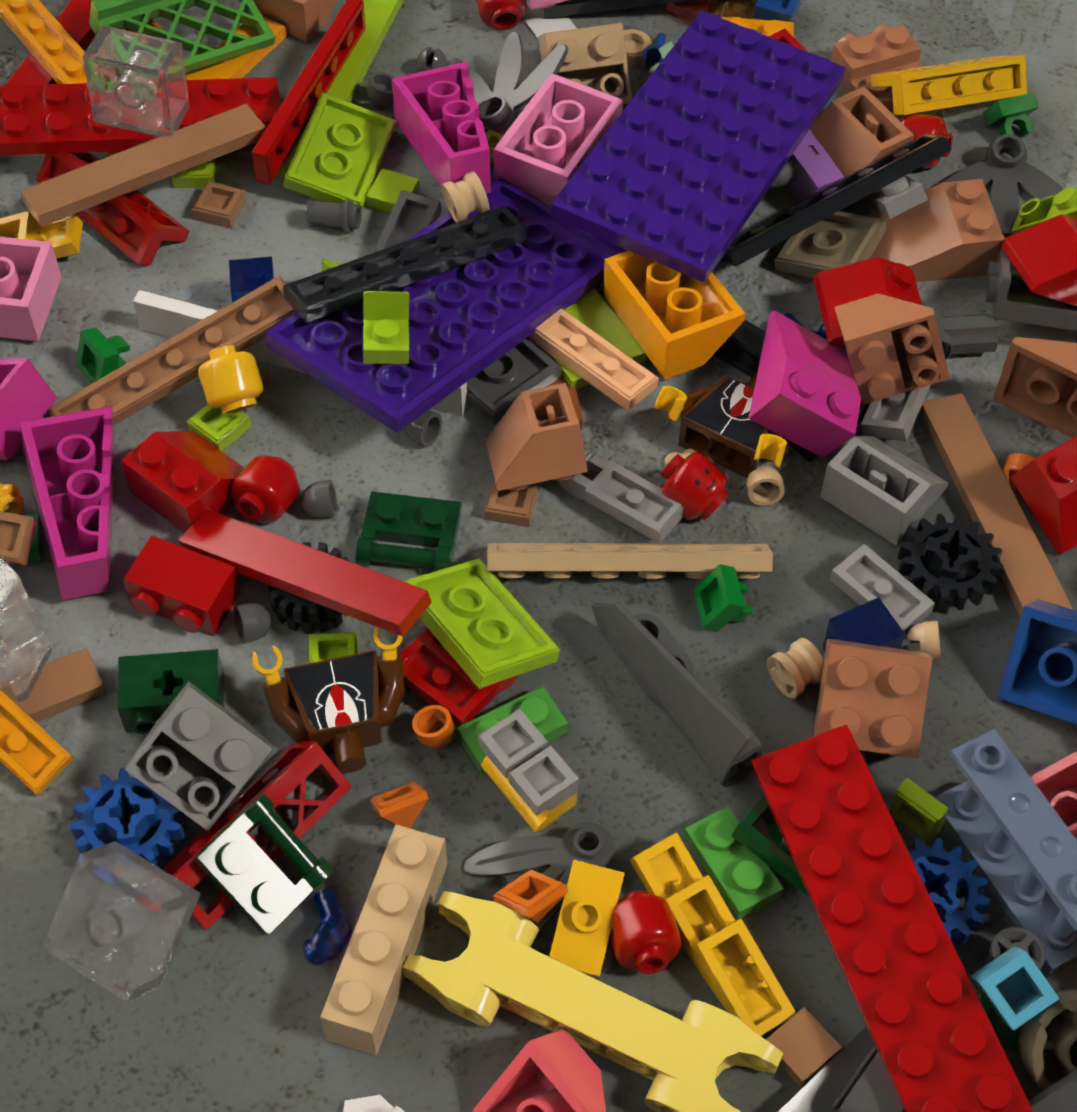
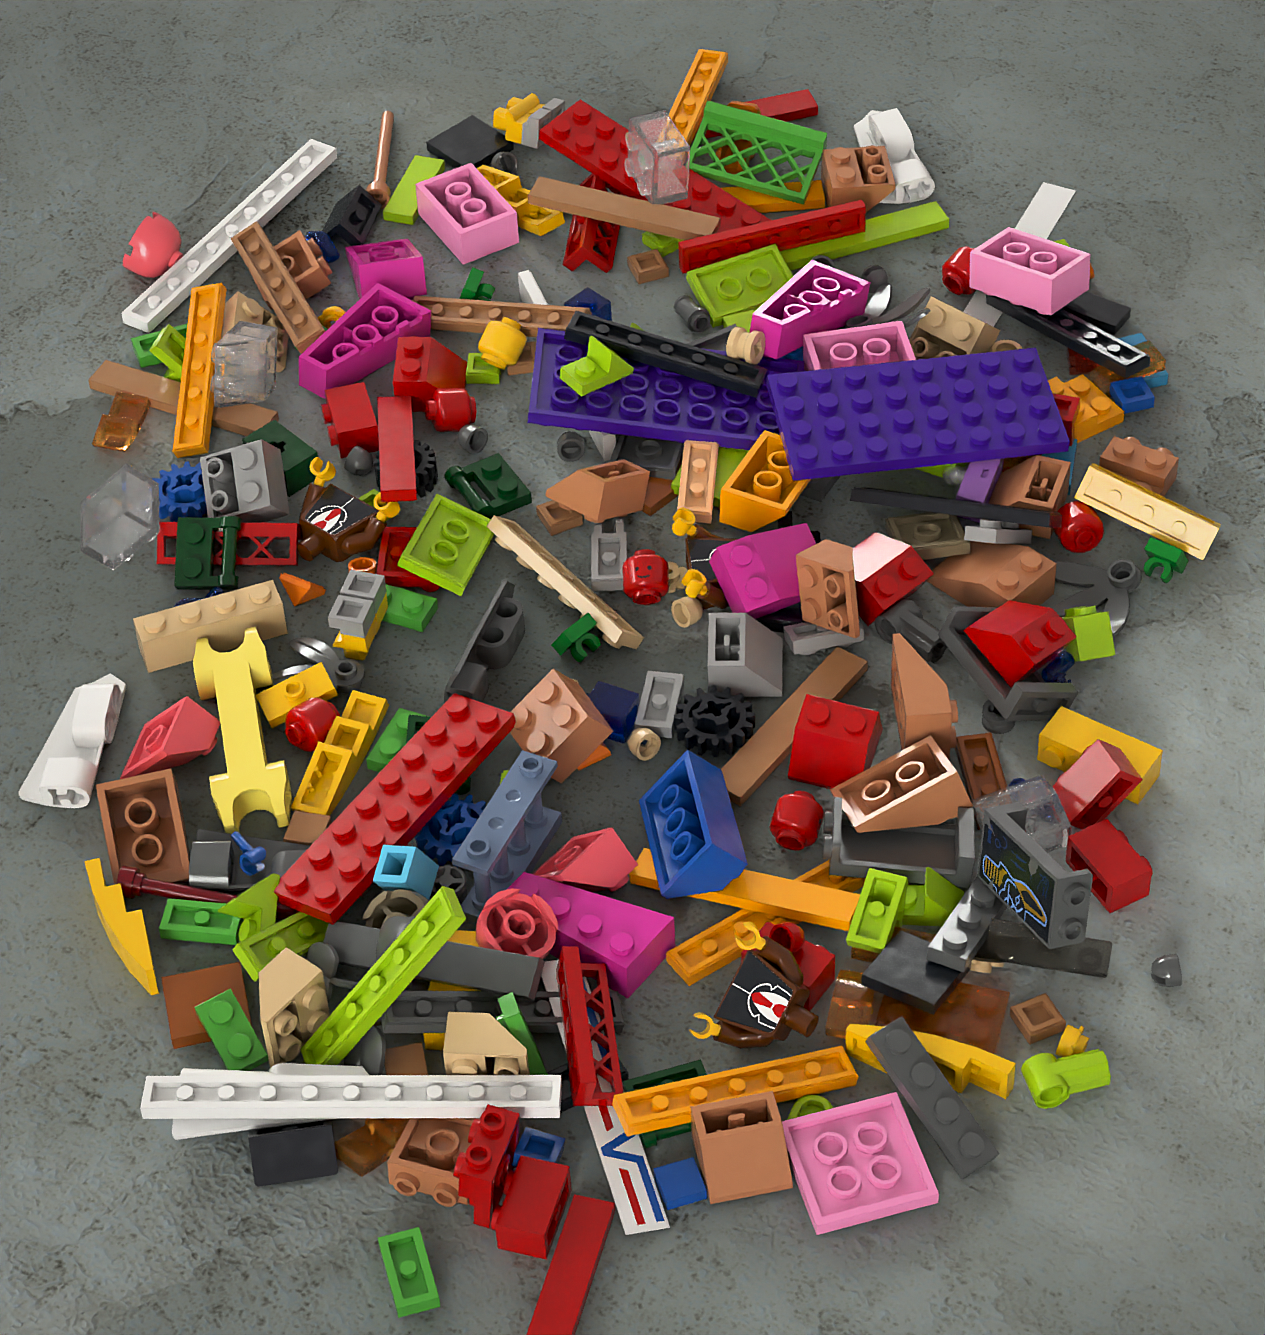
camera: 55 degrees right, 10 degrees down
(531, 895) = (284, 662): orange slope -> none

